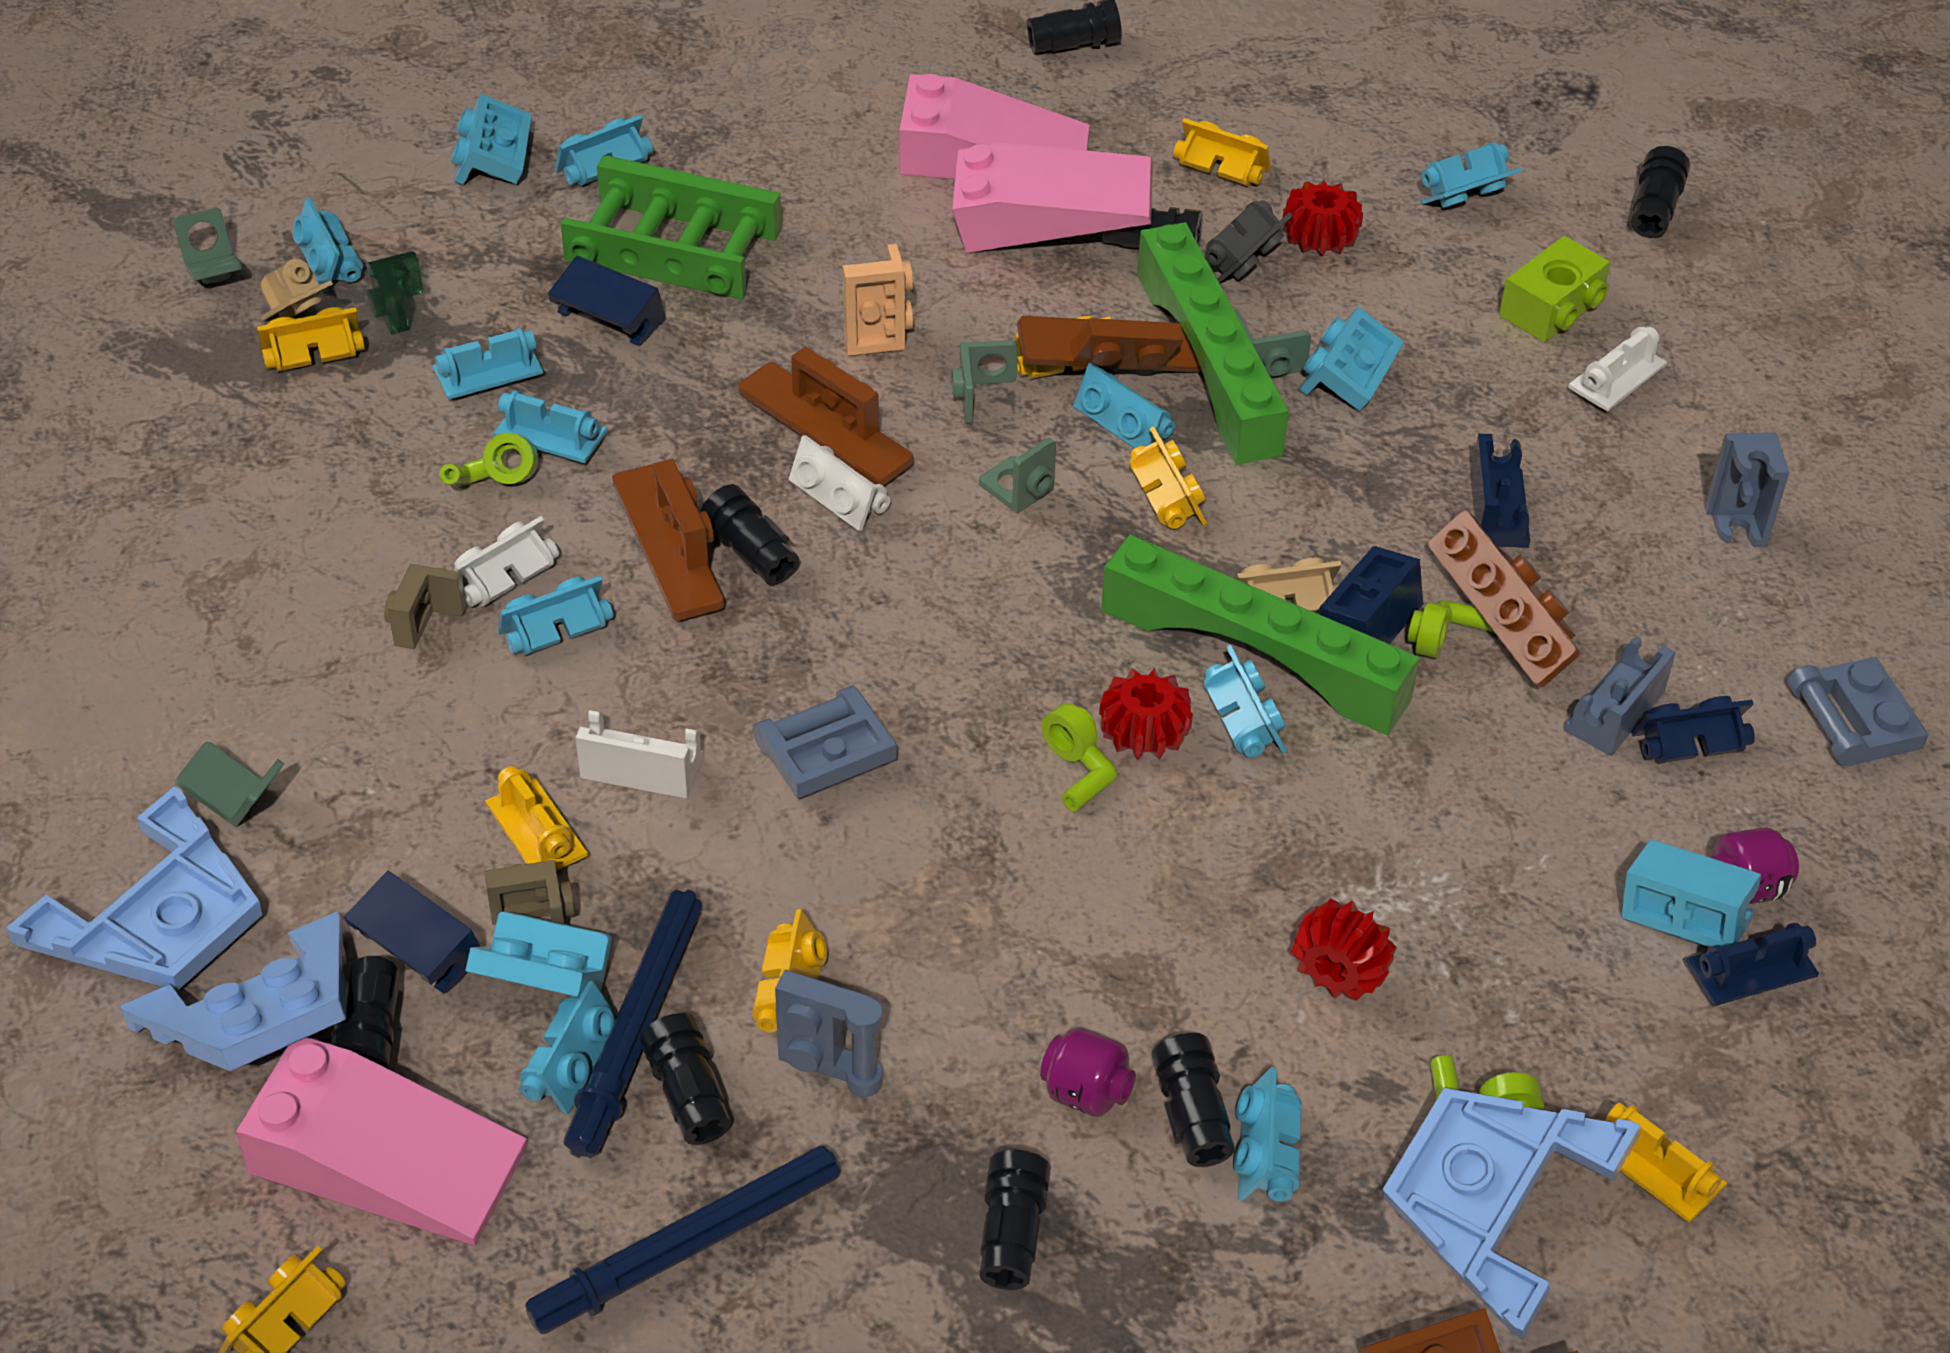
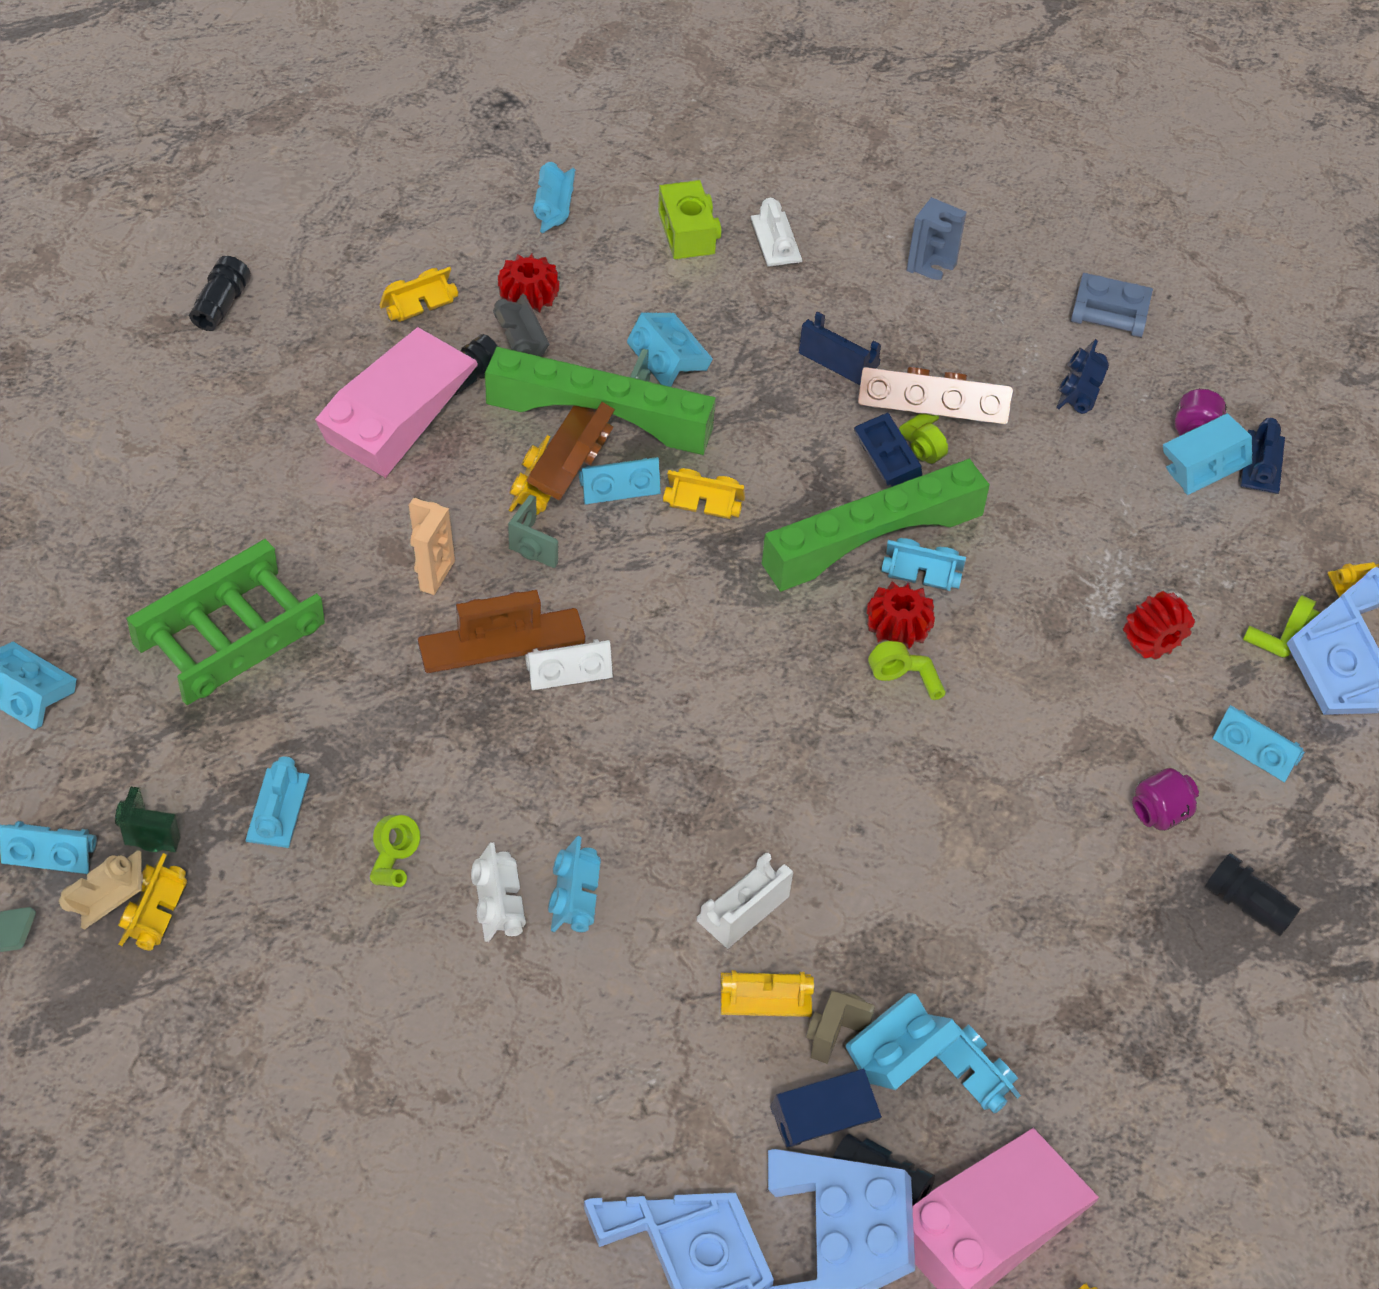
camera: 60 degrees left, 5 degrees up
(224, 782) = (604, 1165): sand green bracket -> none
(417, 597) = (501, 965): dark tan bracket -> none
(557, 431) = (379, 799): medium azure hinge -> none
(600, 1100) = (1022, 1058): dark blue axle -> none
(609, 297) = (274, 695): dark blue hinge -> none
(619, 139) = (93, 634): medium azure hinge -> none
(671, 536) = (548, 777): dark orange bracket -> none
(680, 1060) = (1047, 1010): black axle -> none
(680, 1240) = (1179, 1134): dark blue axle -> none
(754, 539) = (590, 735): black axle -> none
(788, 948) = (1007, 923): yellow hinge -> none
(812, 1031) = (1075, 909): sand blue plate -> none
(830, 751) = (816, 792): sand blue plate -> none
(956, 114) = (278, 405): bright pink slope -> none
(1031, 473) = (649, 563): sand green bracket -> none
(1196, 1104) = (1220, 760): black axle -> none
(1306, 581) = (847, 478): tan hinge -> none
(1621, 698) = (1039, 393): sand blue hinge -> none
(1660, 185) = (634, 117): black axle -> none

